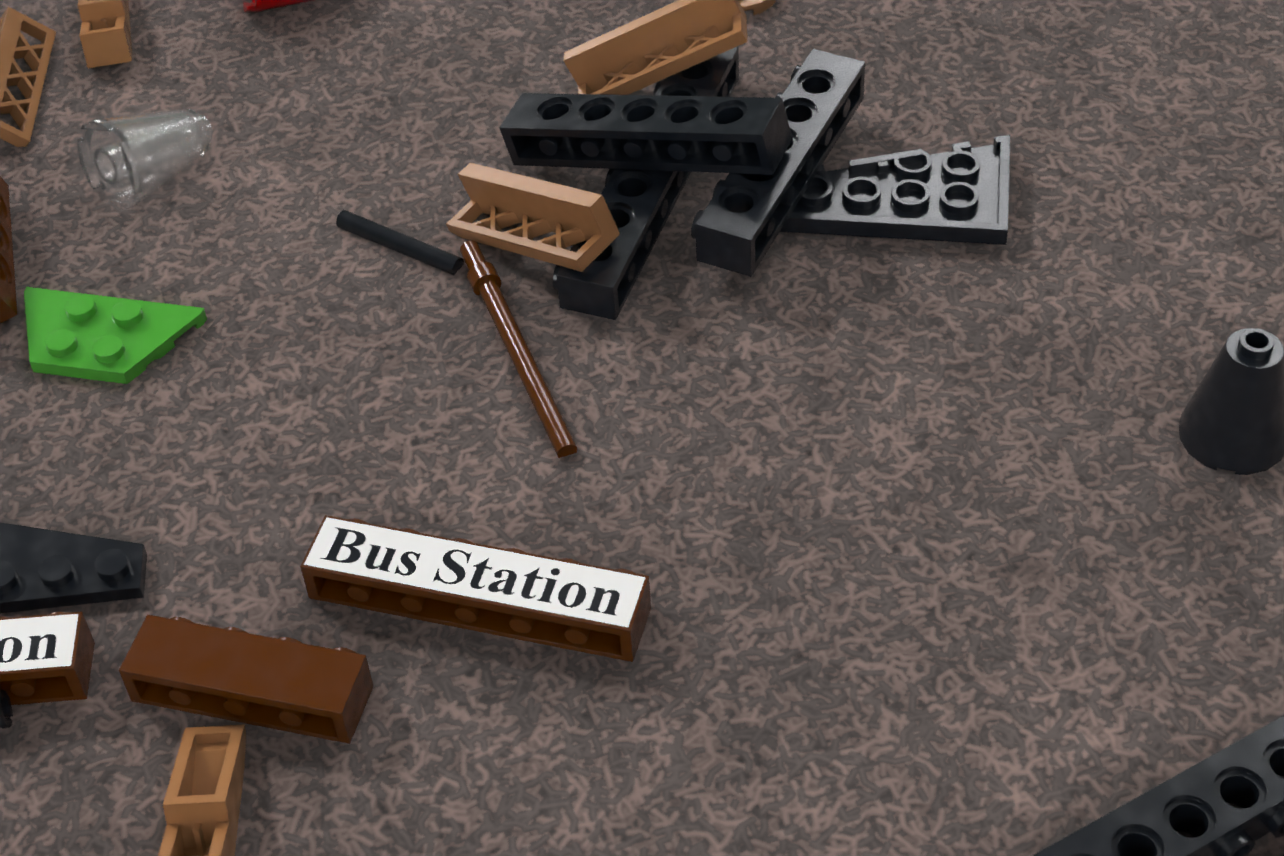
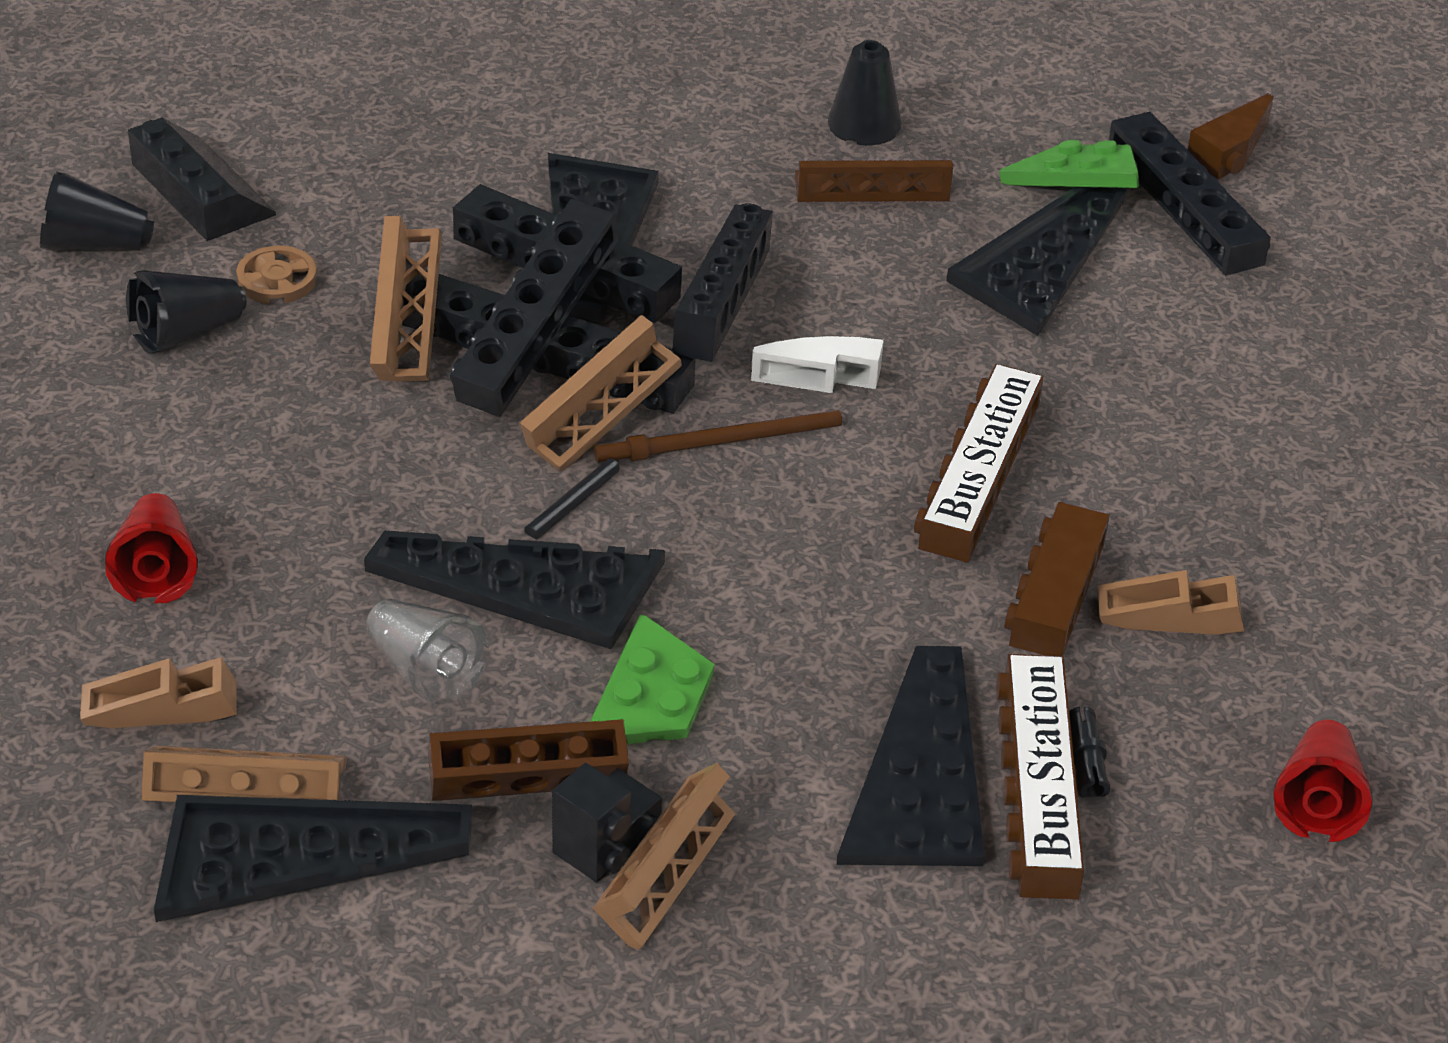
camera: 90 degrees left, 5 degrees down
(256, 232) = (527, 580): none -> black wing
(650, 419) = (819, 362): none -> white slope
(761, 293) = (722, 282): none -> black brick
(945, 635) = (1038, 259): none -> black wing
(1074, 445) = (874, 180): none -> reddish brown fence
(1187, 676) = (1076, 166): none -> bright green wing

